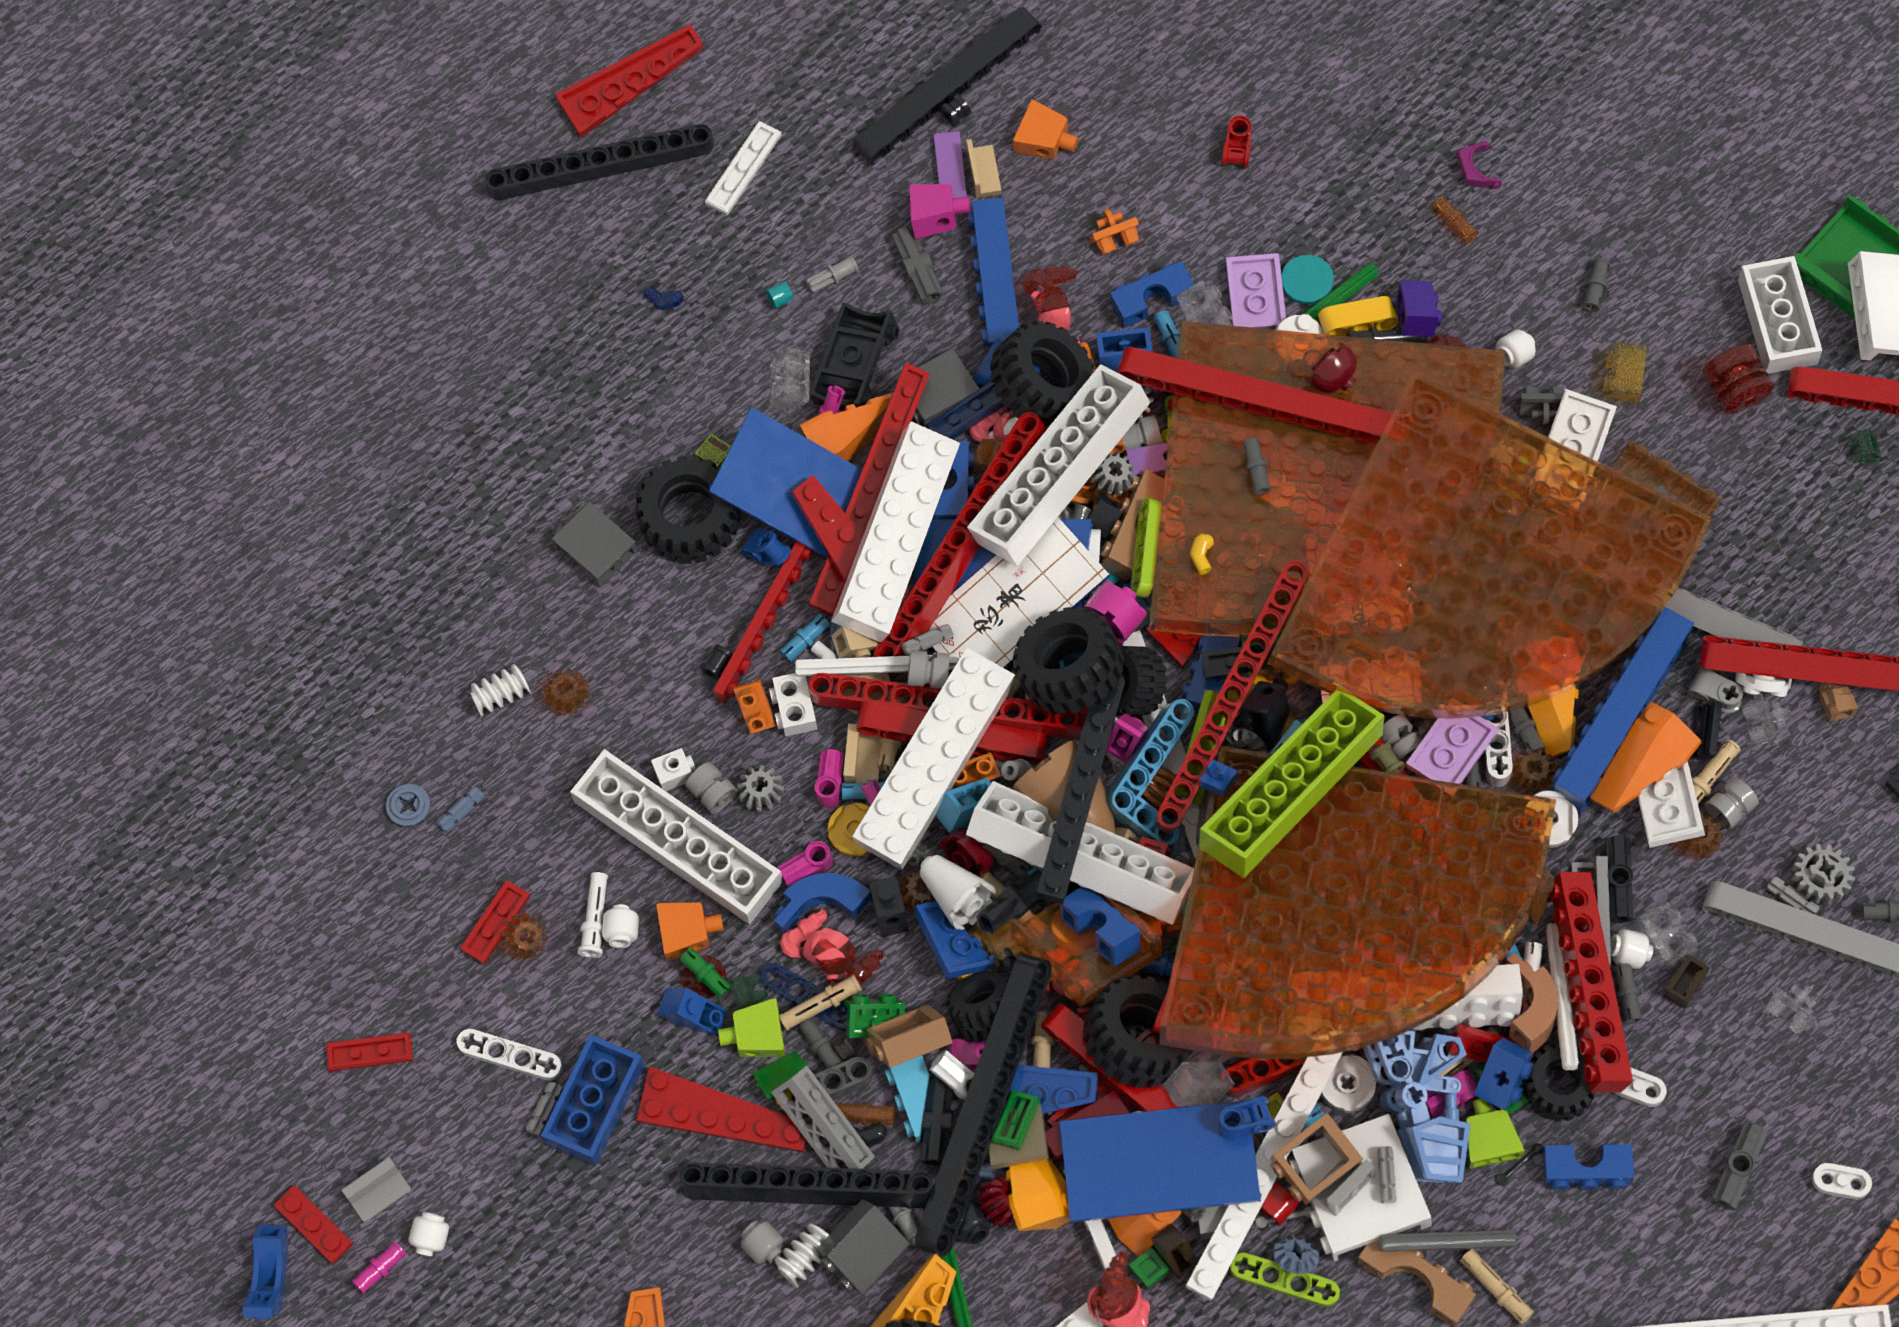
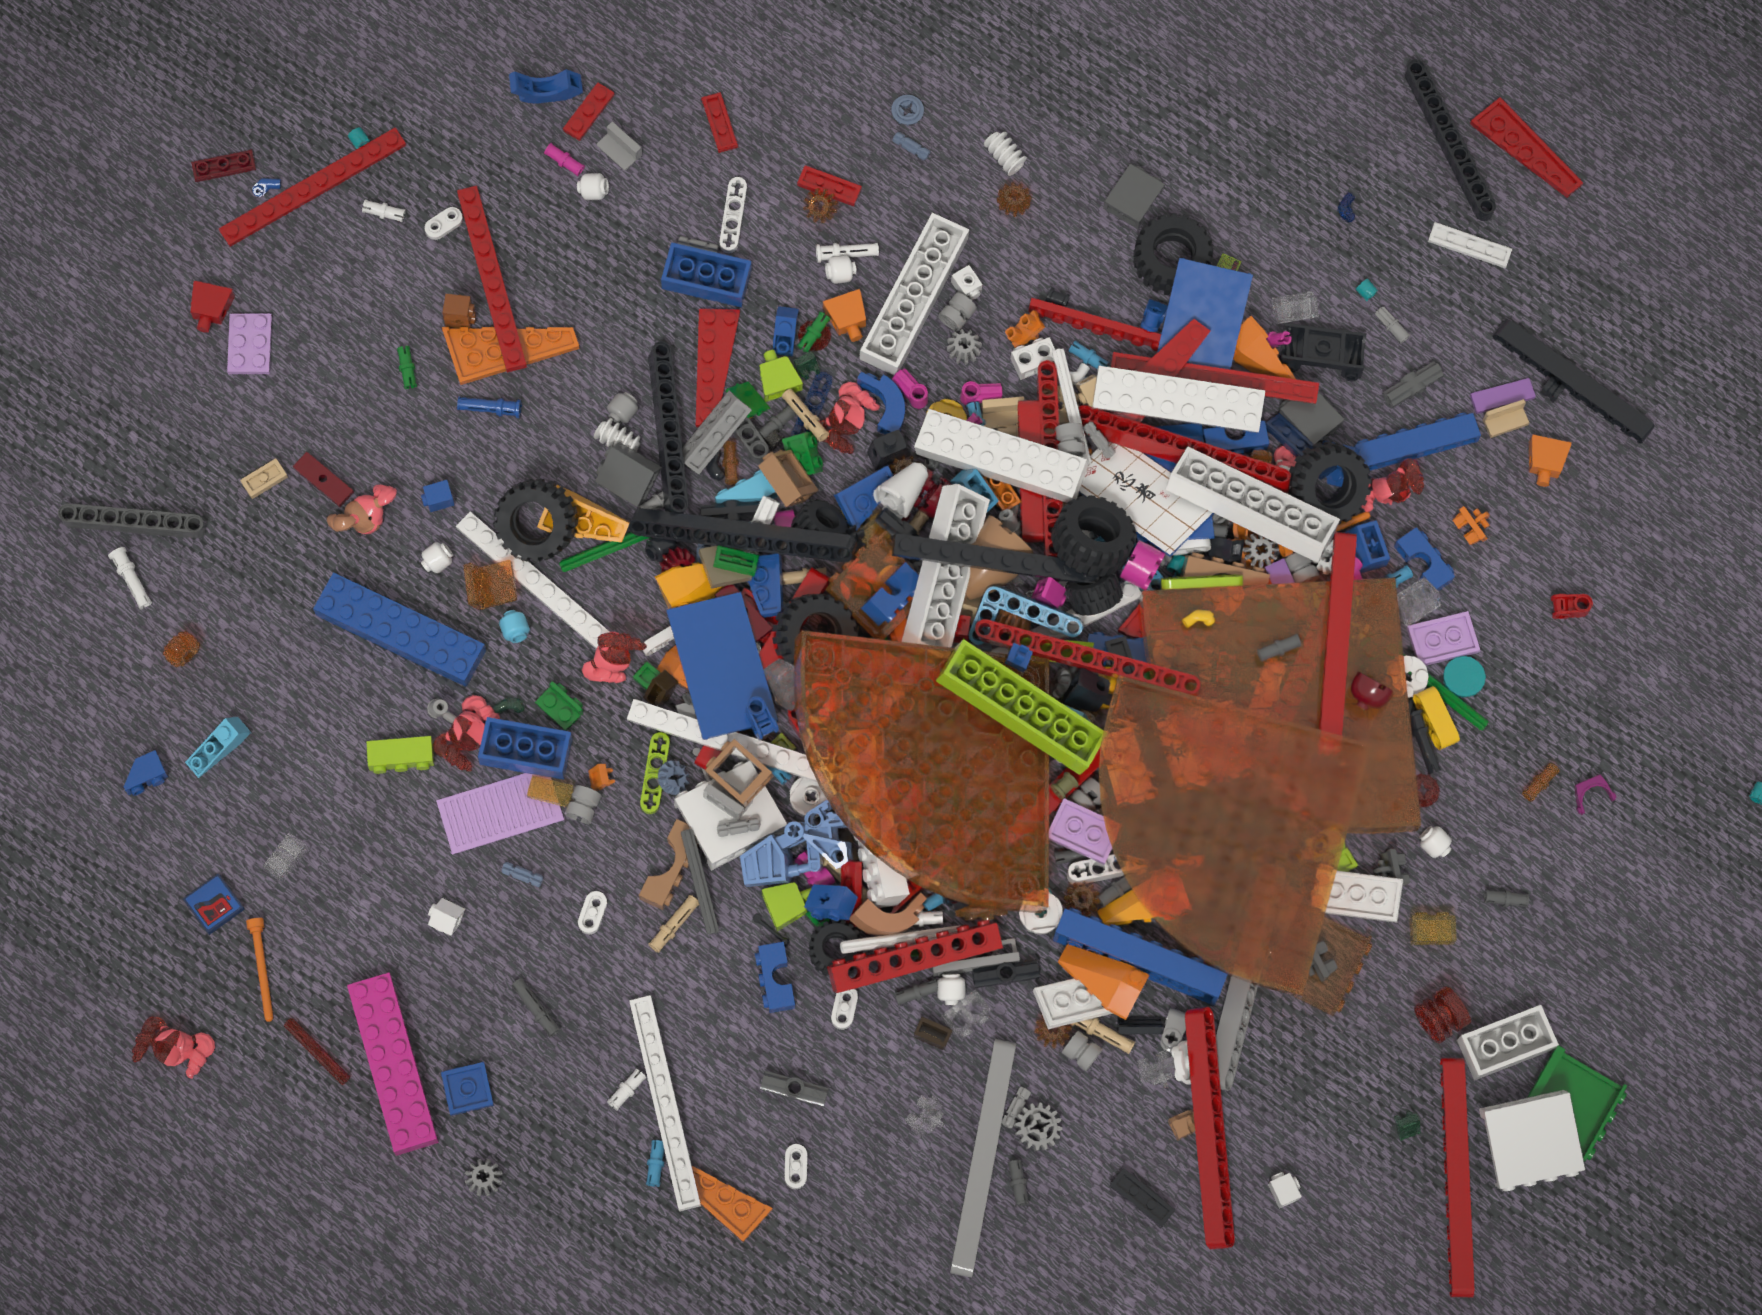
camera: 70 degrees right, 5 degrees up
(935, 208) = (1459, 385): dark pink torso -> none
(1418, 308) = (1452, 760): dark purple brick -> none

